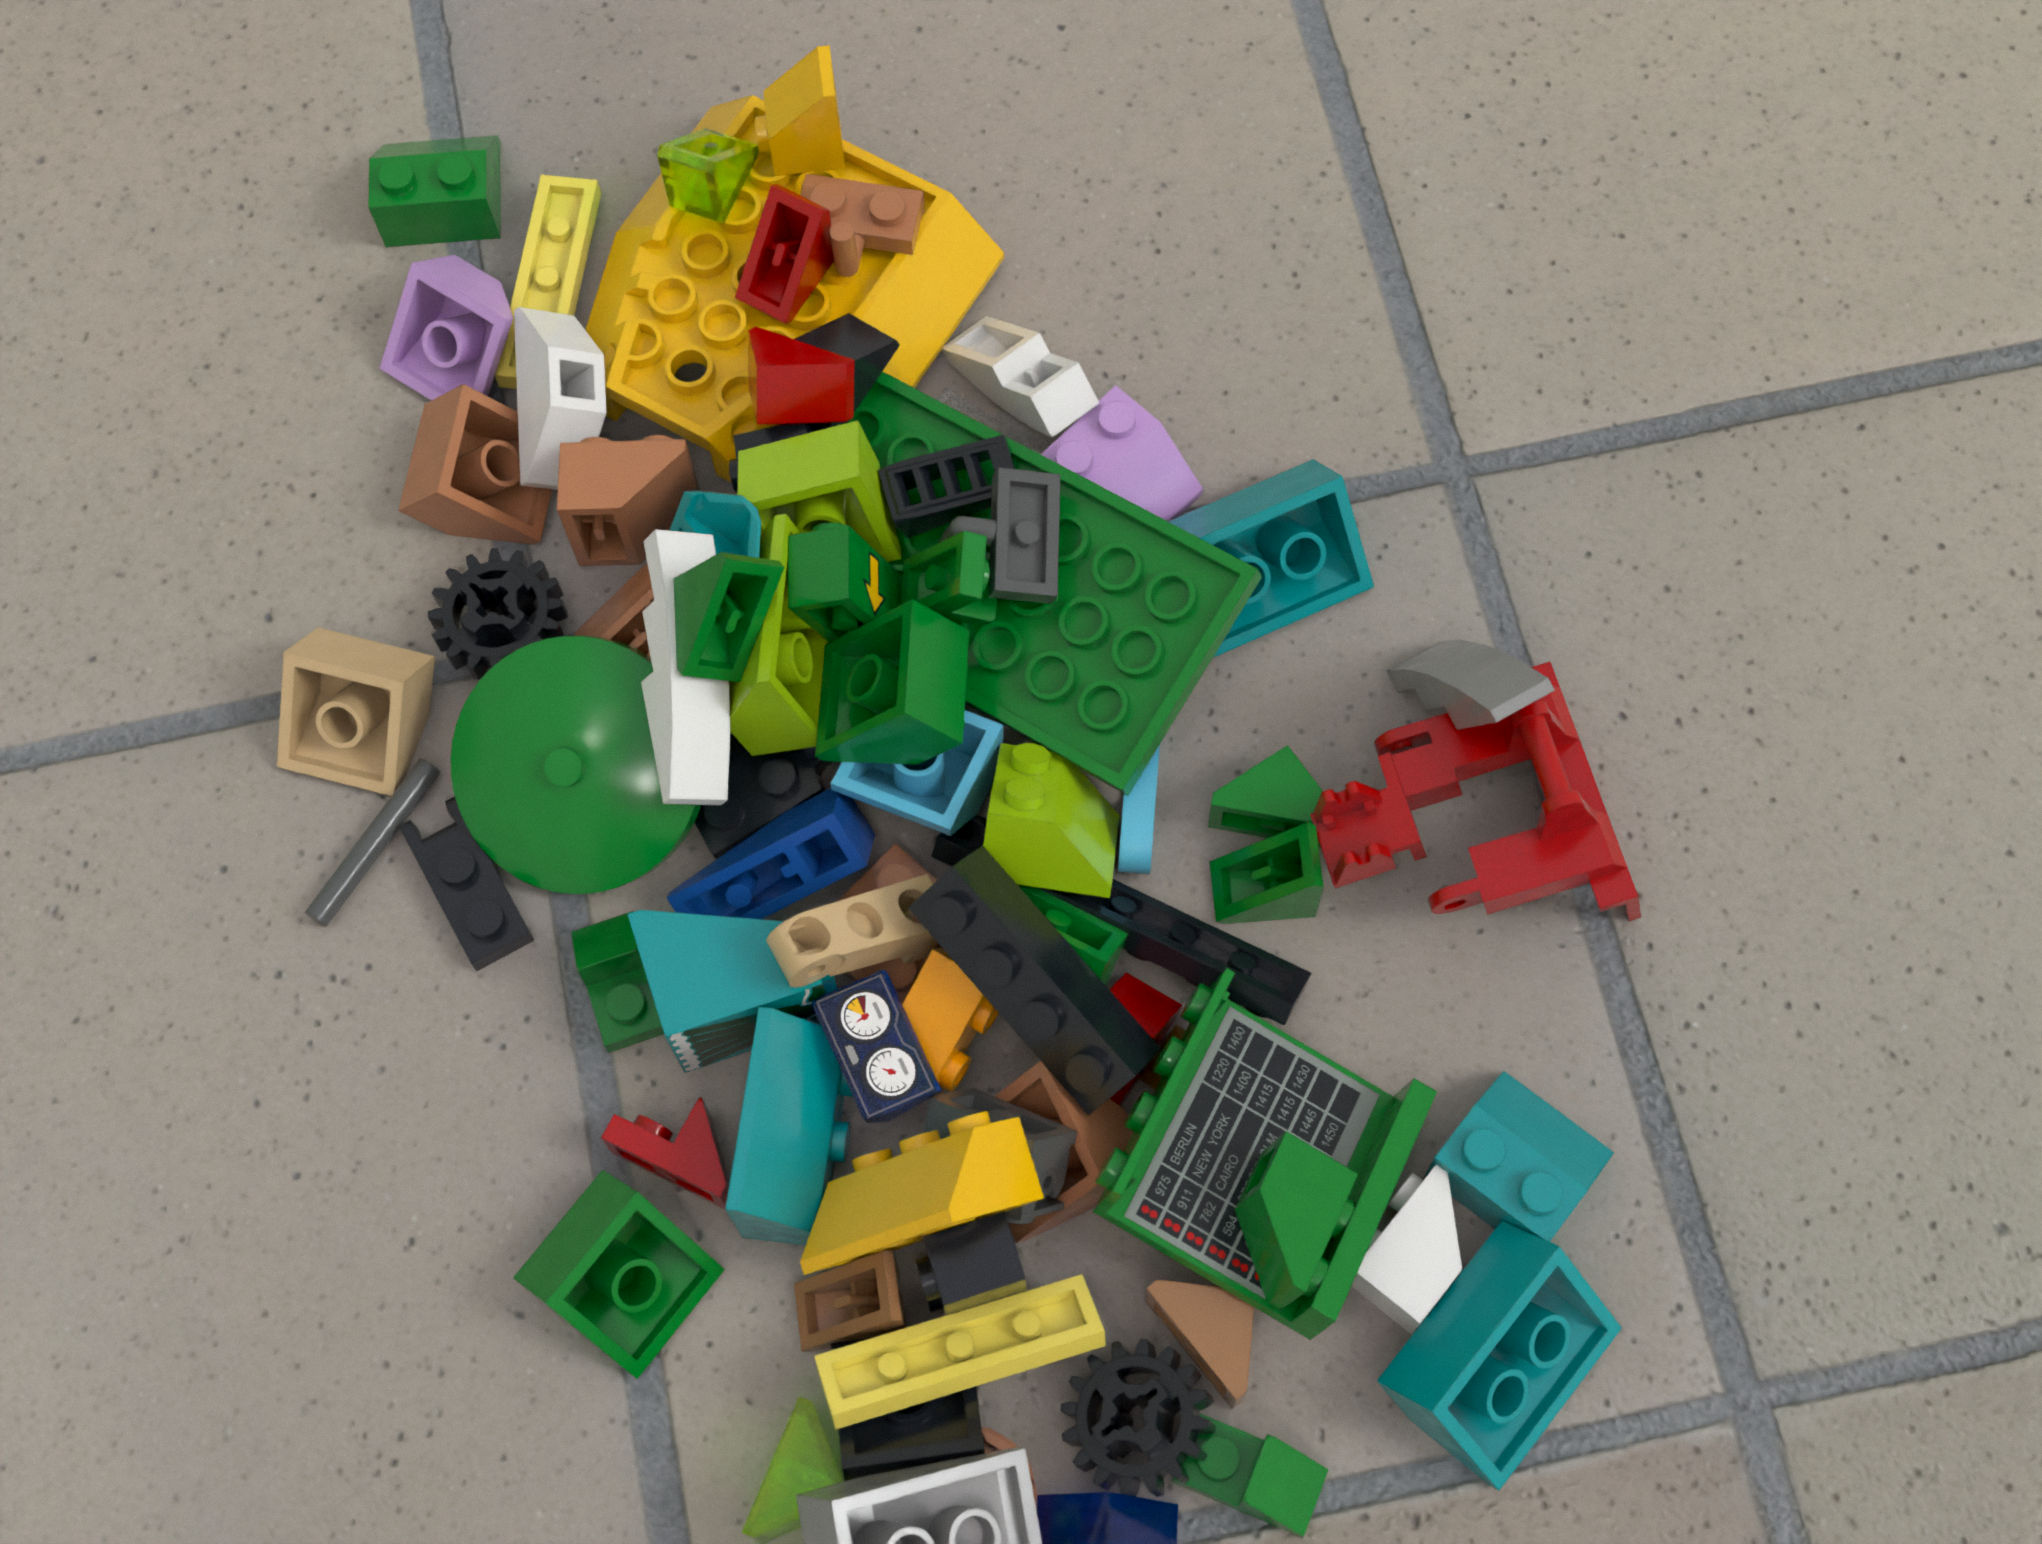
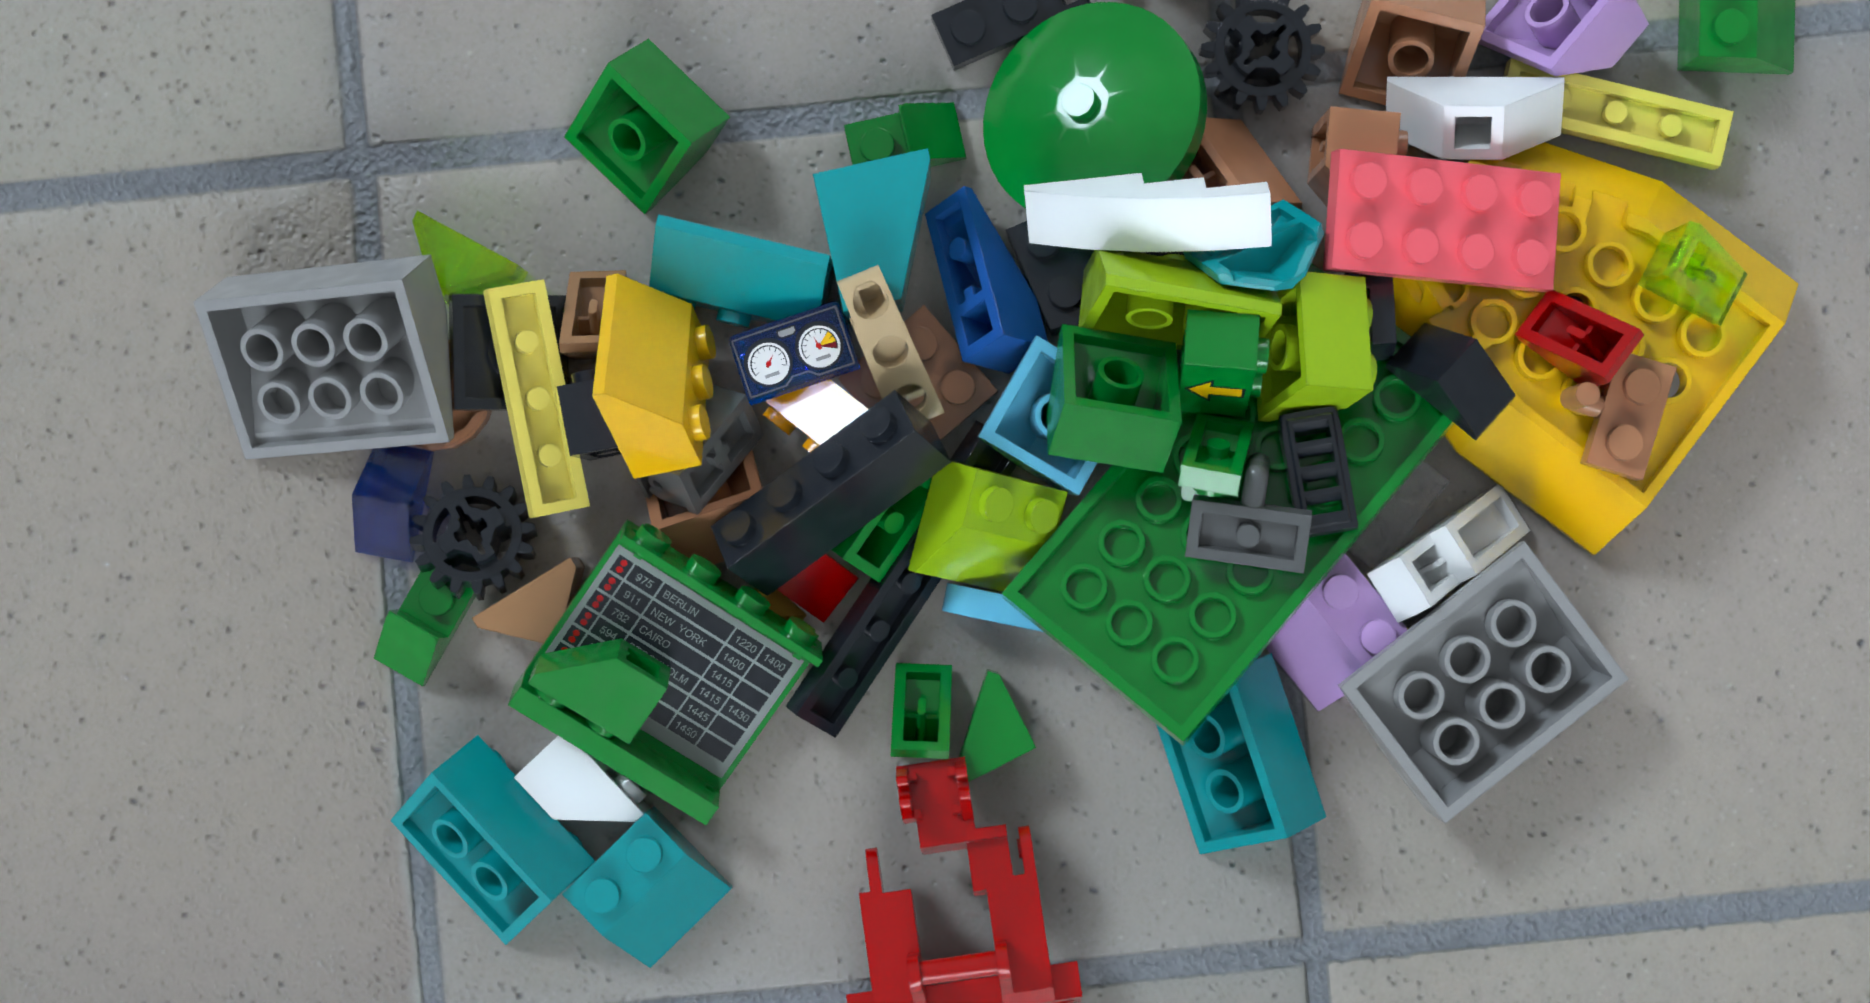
camera: 100 degrees right, 20 degrees up
(672, 394) = (1441, 221): none -> coral plate
(690, 1162) = (728, 192): red slope -> none
(721, 613) = (1177, 246): green slope -> none
(797, 381) = (1433, 336): red slope -> none
(802, 118) = (1732, 368): yellow slope -> none
(1155, 322) = (1482, 683): none -> light grey slope
(1470, 681) = (1058, 917): light grey slope -> none

